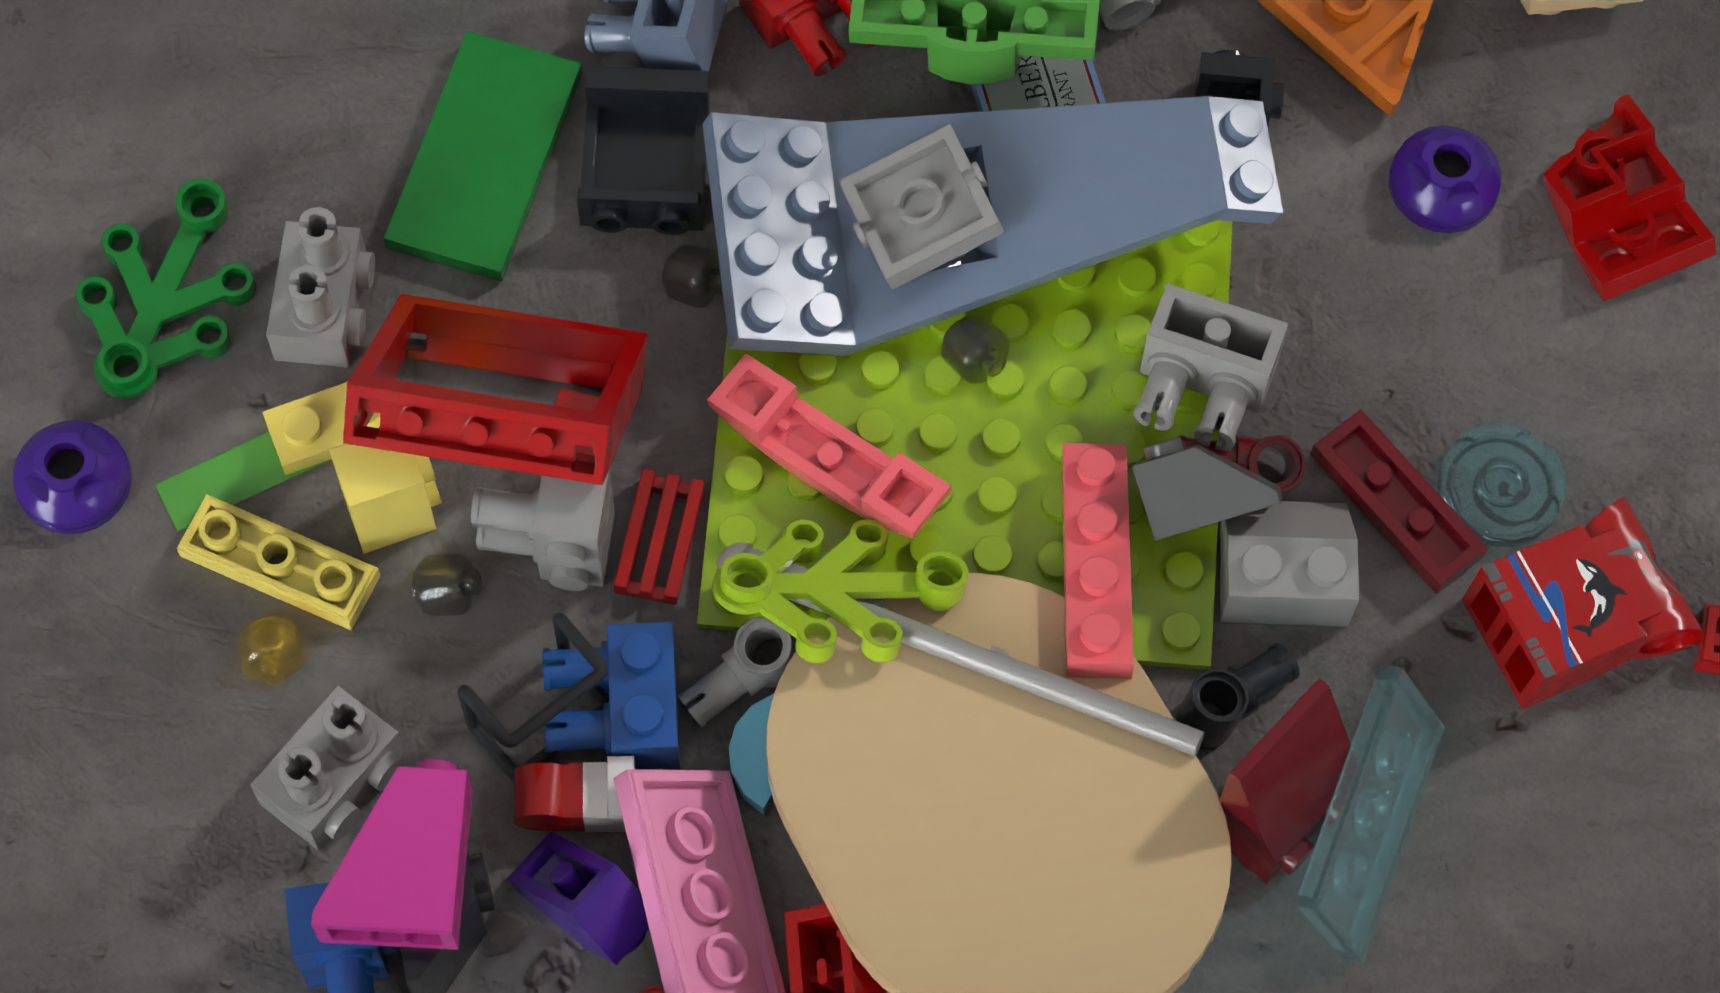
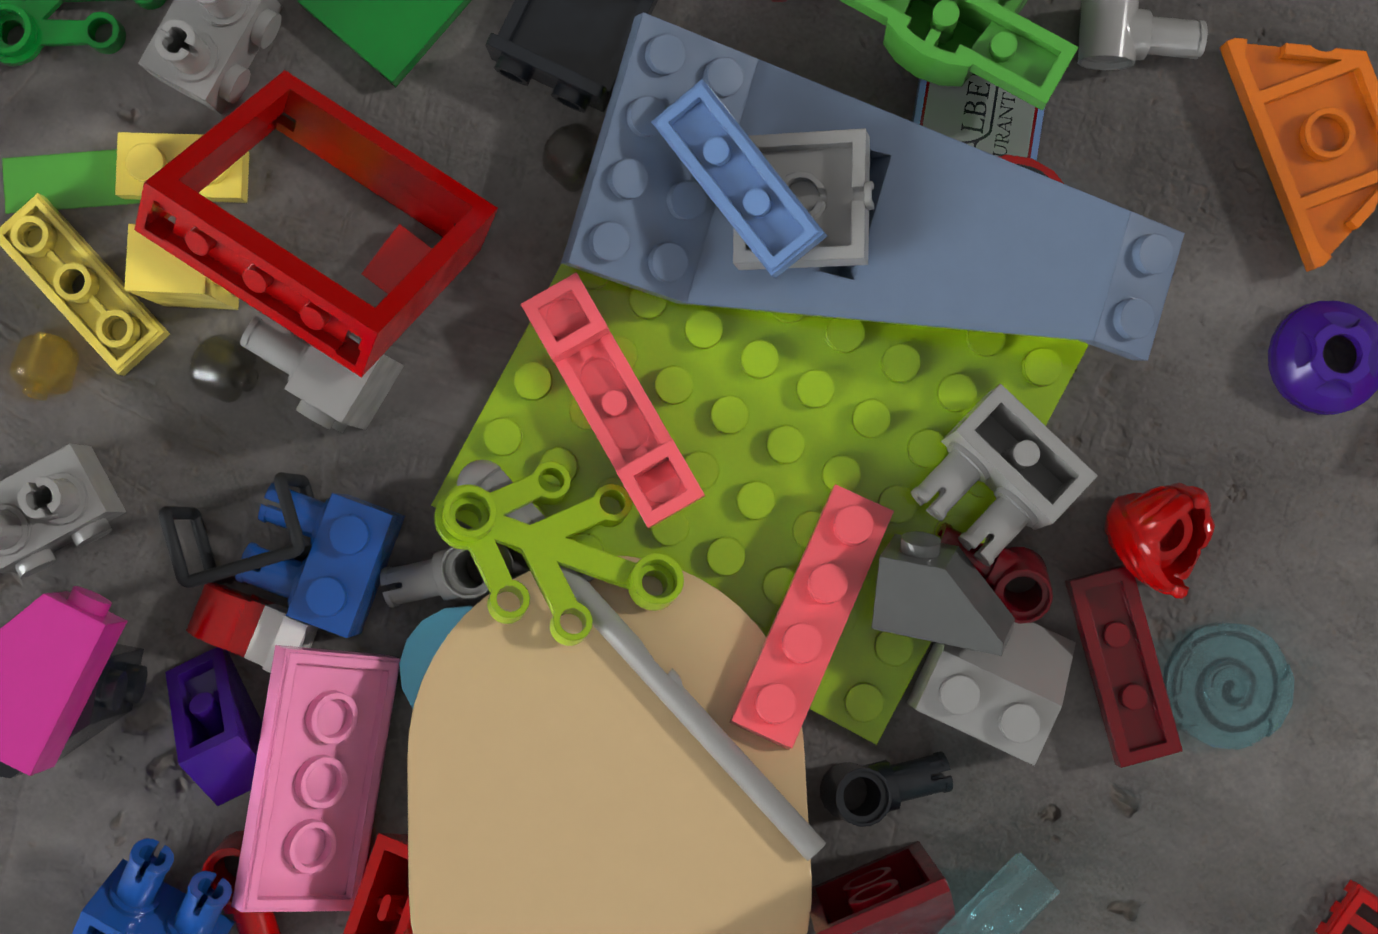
camera: 30 degrees right, 20 degrees up
(670, 489) = (413, 391): red tile -> none
(860, 205) = (739, 179): none -> medium blue tile
(975, 348) = (800, 348): clear smoke piece -> none
(1240, 77) = (1176, 174): black bracket -> none
(1372, 368) = (1161, 534): none -> red hair
(1579, 606) = (1240, 843): red piece -> none

